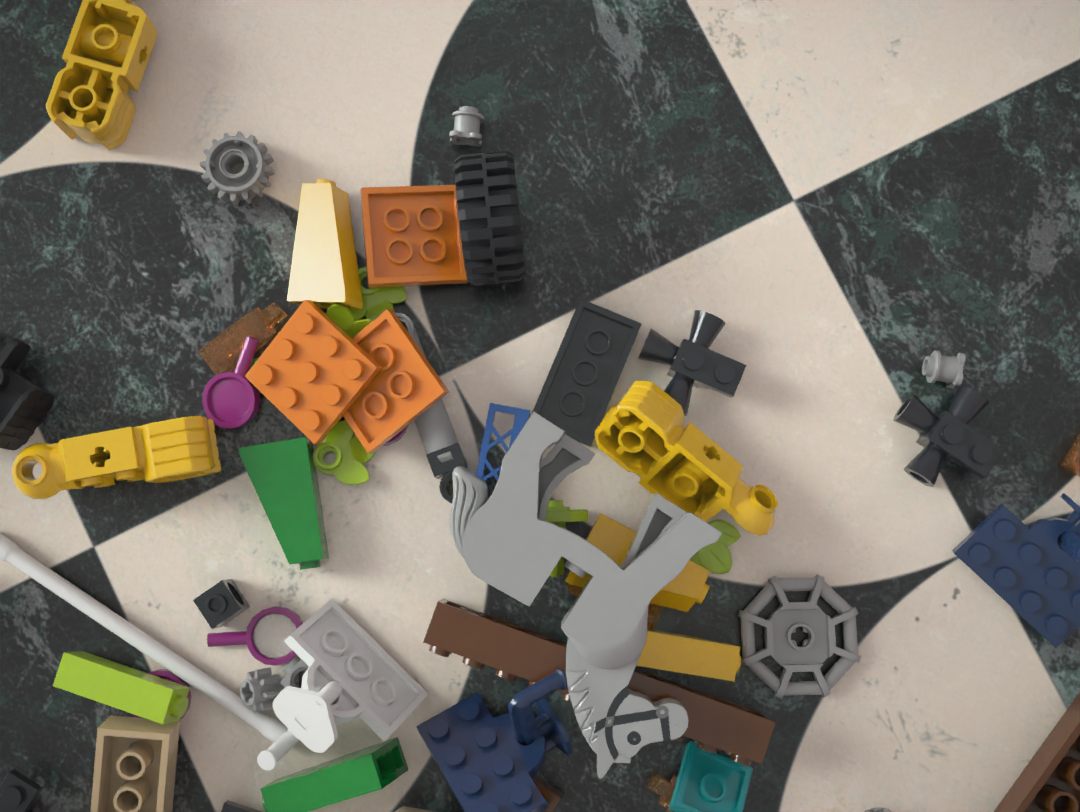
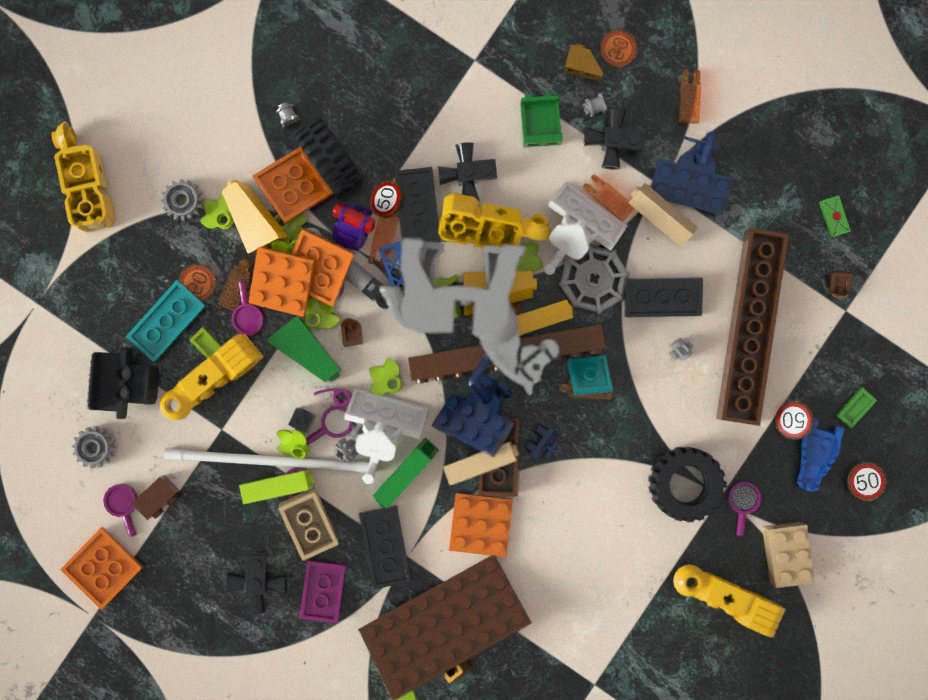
camera: 30 degrees left, 5 degrees up
(106, 334) = (166, 321): none -> teal plate
(147, 400) = (205, 342): none -> lime tile
(187, 303) = (199, 280): none -> clear orange piece
(187, 633) = (293, 443): none -> lime plate
(276, 213) = (215, 213): none -> lime plate
(301, 590) = (337, 392): none -> magenta panel
(375, 509) = (351, 332): none -> reddish brown plate
(387, 604) = (383, 376): none -> lime plate
(469, 347) = (352, 226): none -> dark purple piece
(509, 387) = (383, 236): none -> clear orange hinge
(544, 334) = (386, 199): none -> piece
(826, 544) = (581, 224): none -> white plate
(847, 345) = (540, 120): none -> green panel
(891, 524) = (609, 198): none -> clear orange hinge
(895, 728) = (663, 297): none -> black plate
(959, 294) = (582, 63): none -> pearl gold slope
(963, 596) = (662, 214): none -> tan brick
(1024, 301) = (618, 48): none -> clear orange piece

